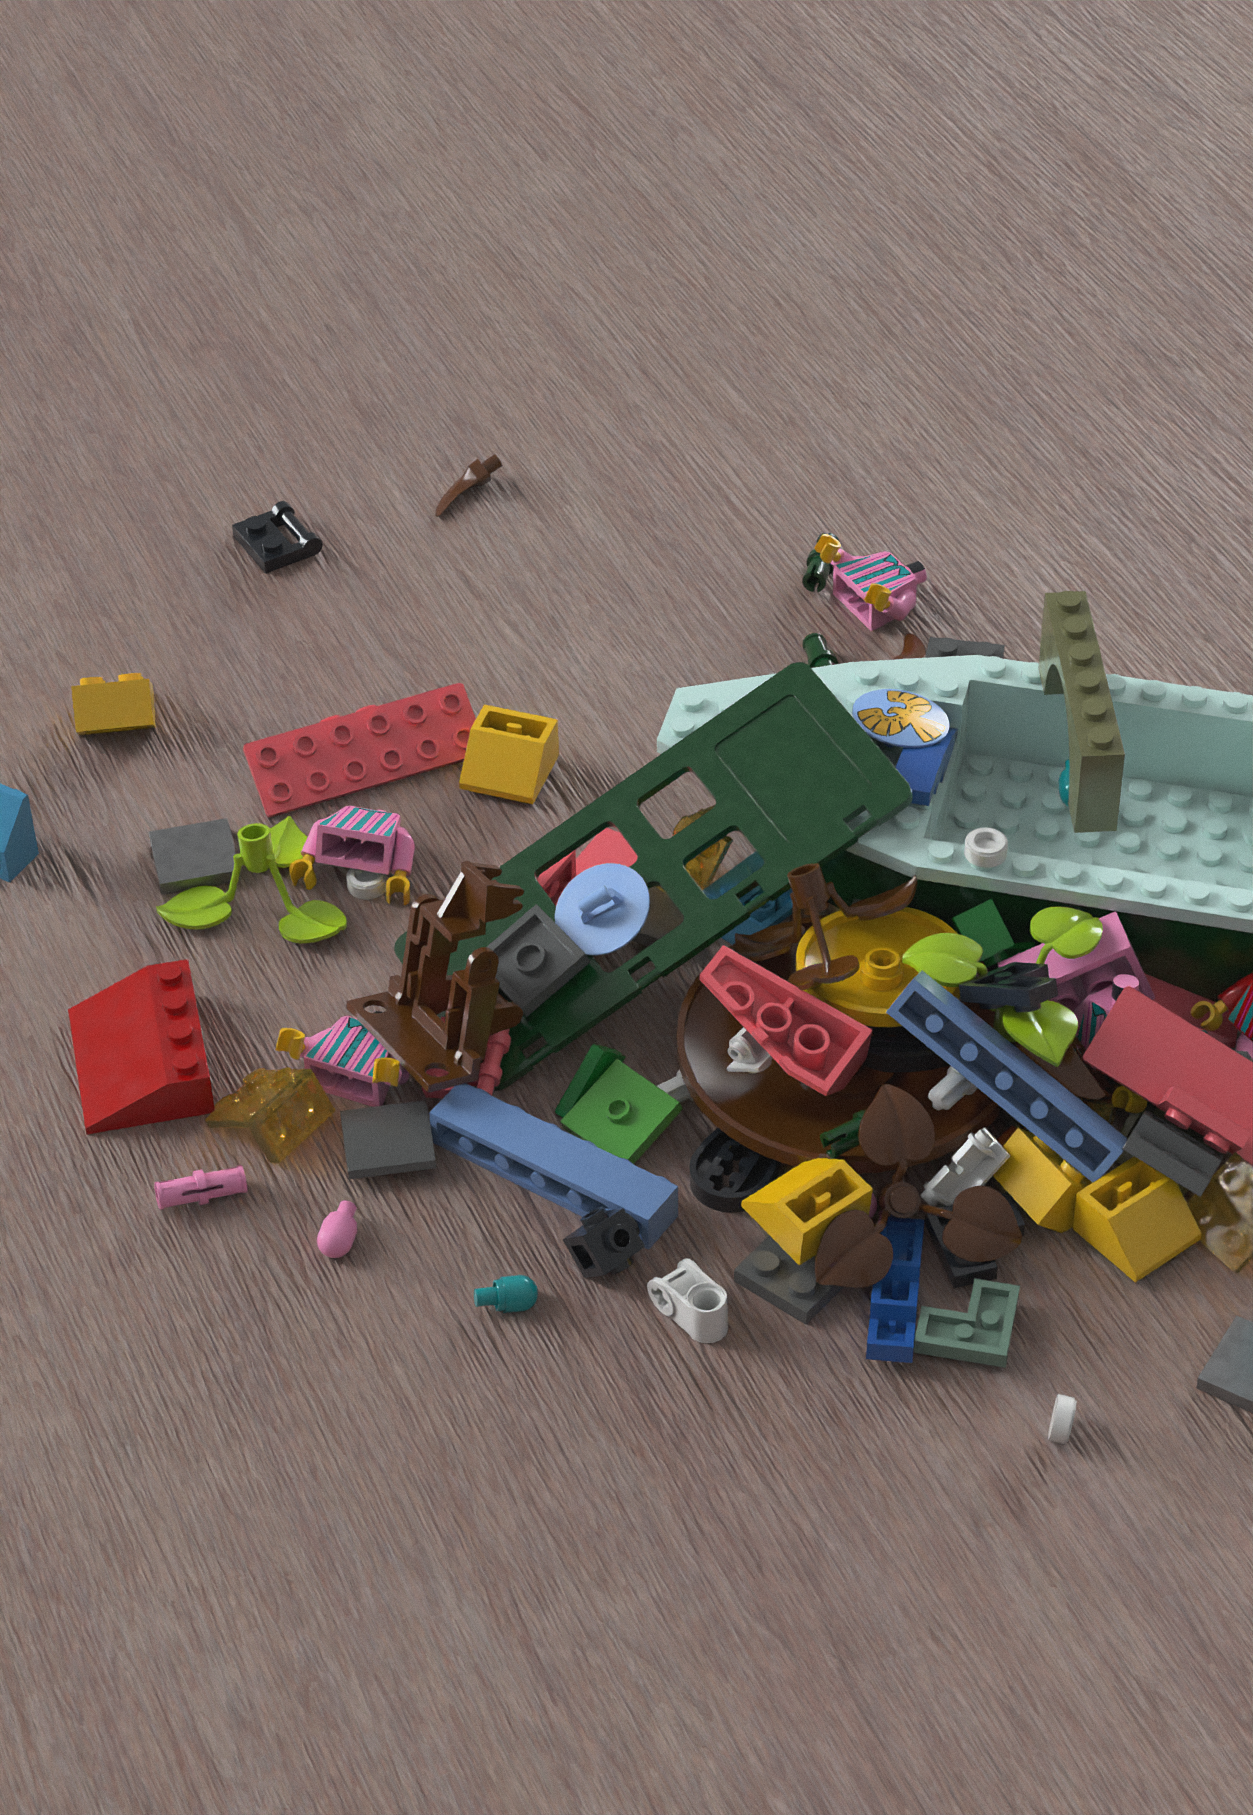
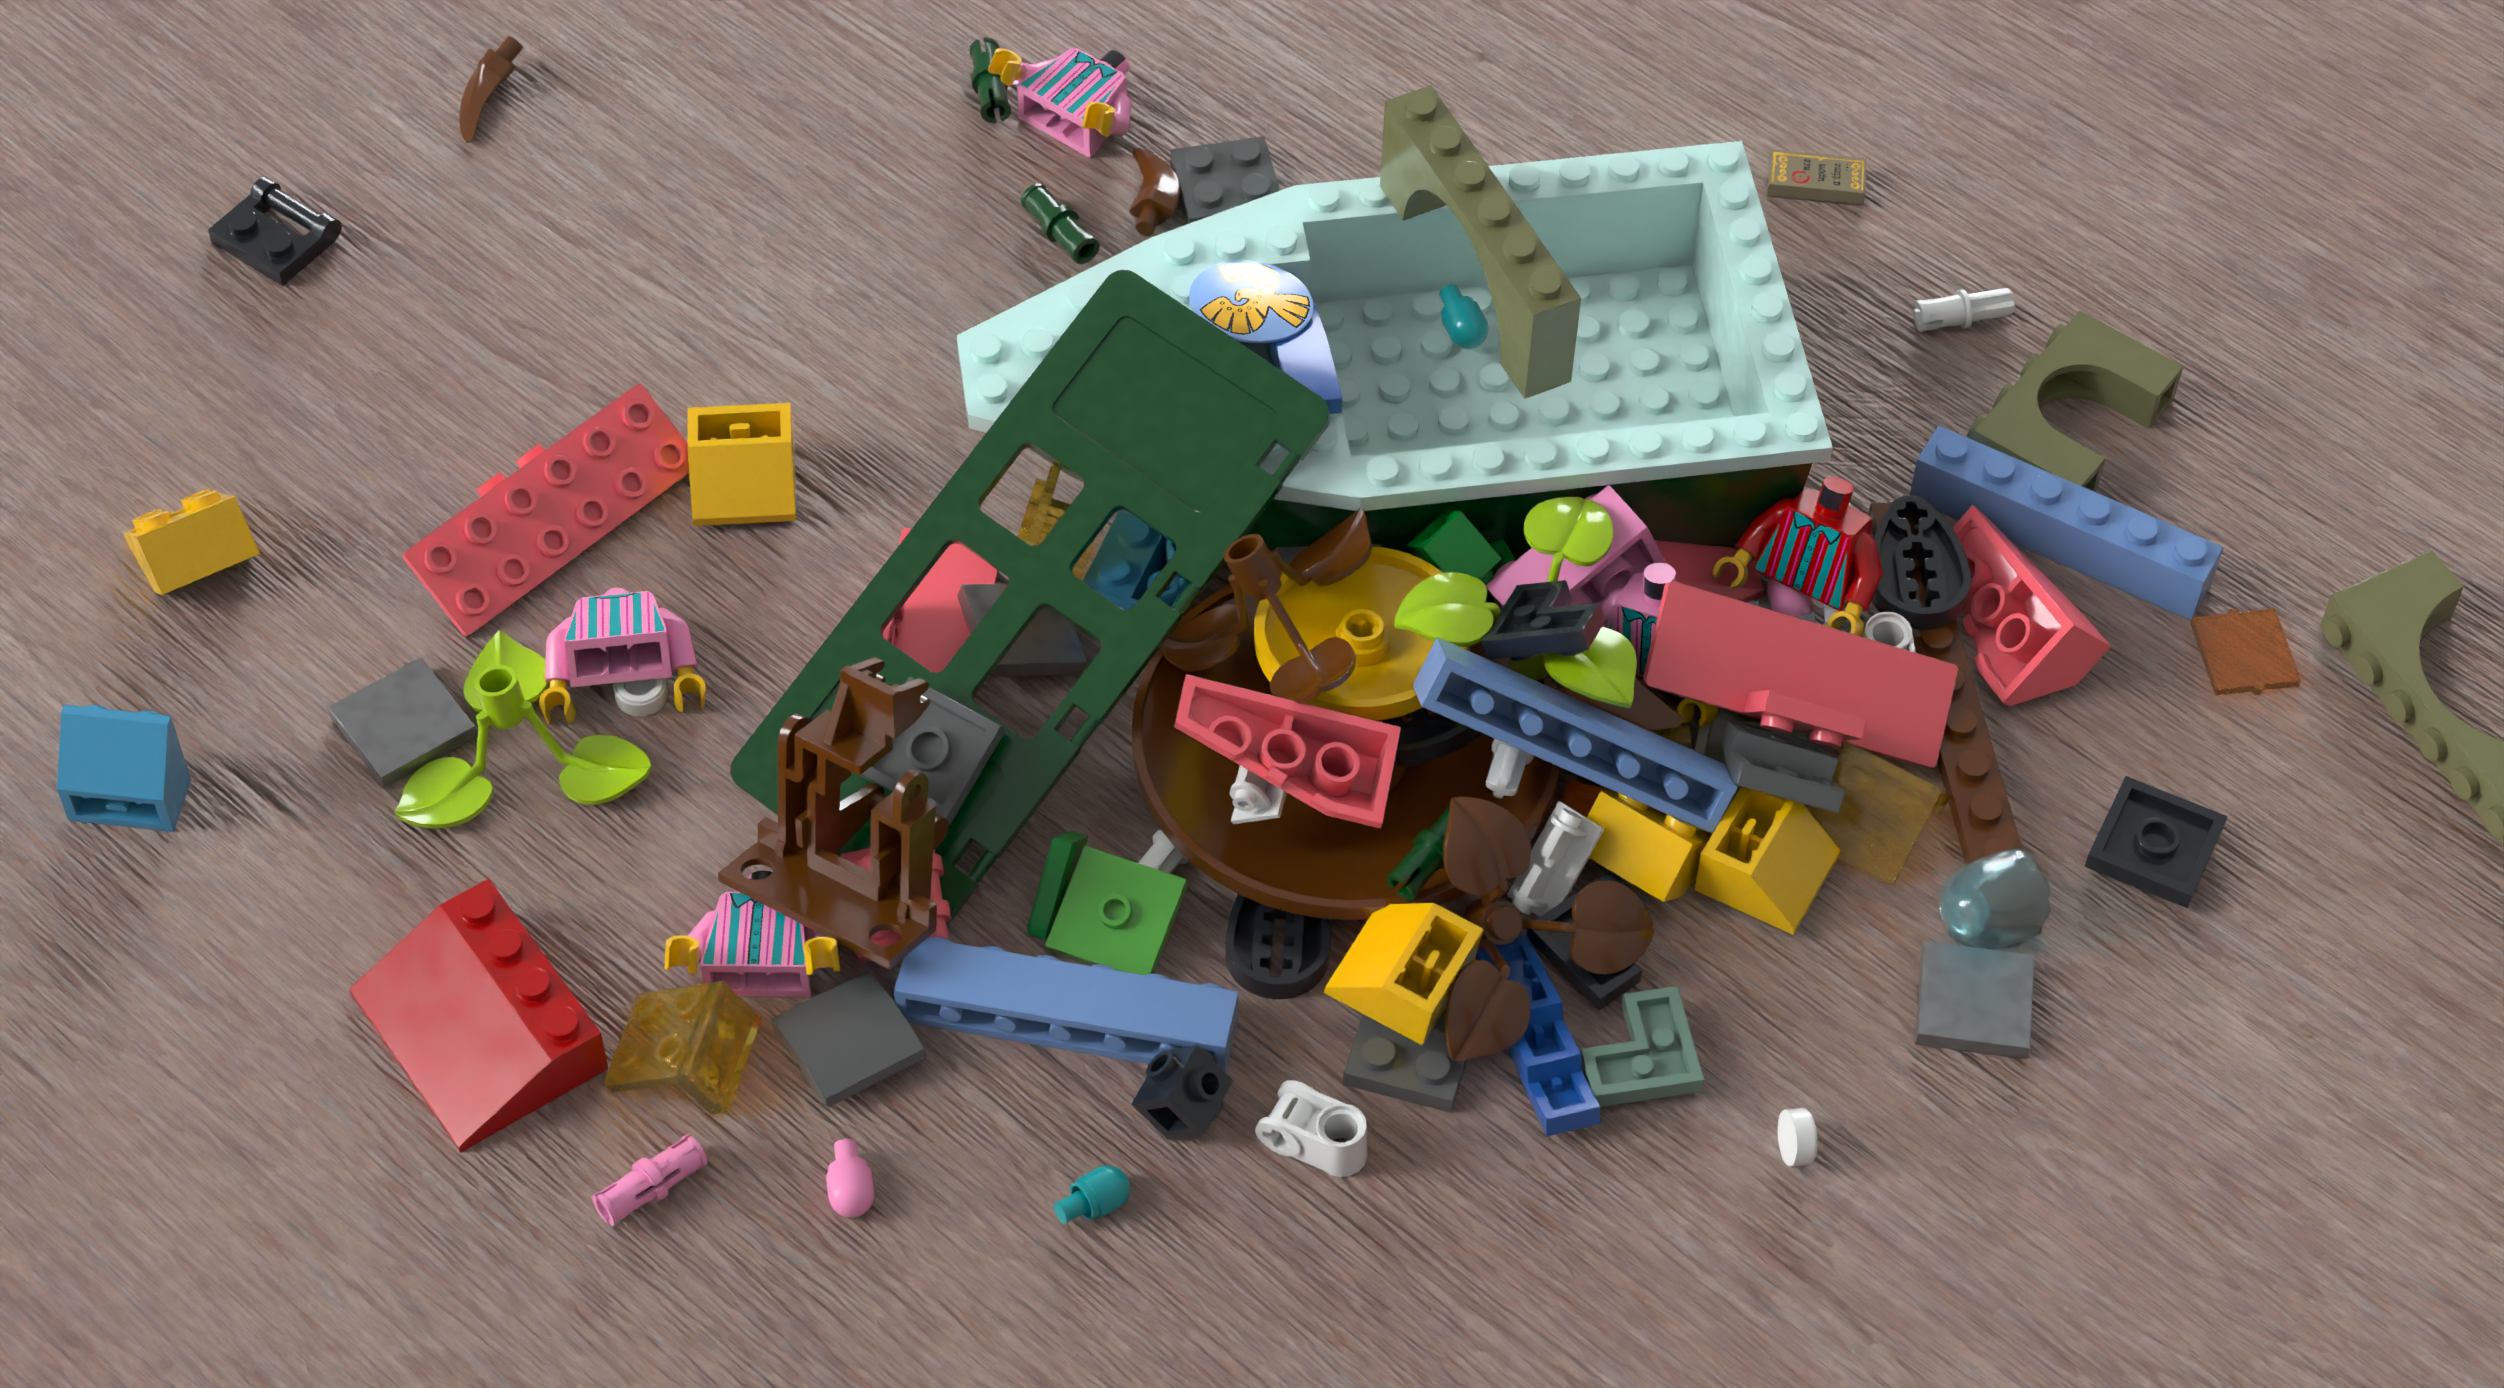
camera: 25 degrees left, 10 degrees up
(603, 908) = (993, 657): light blue shield -> none
(986, 847) = (1437, 451): white tile -> none

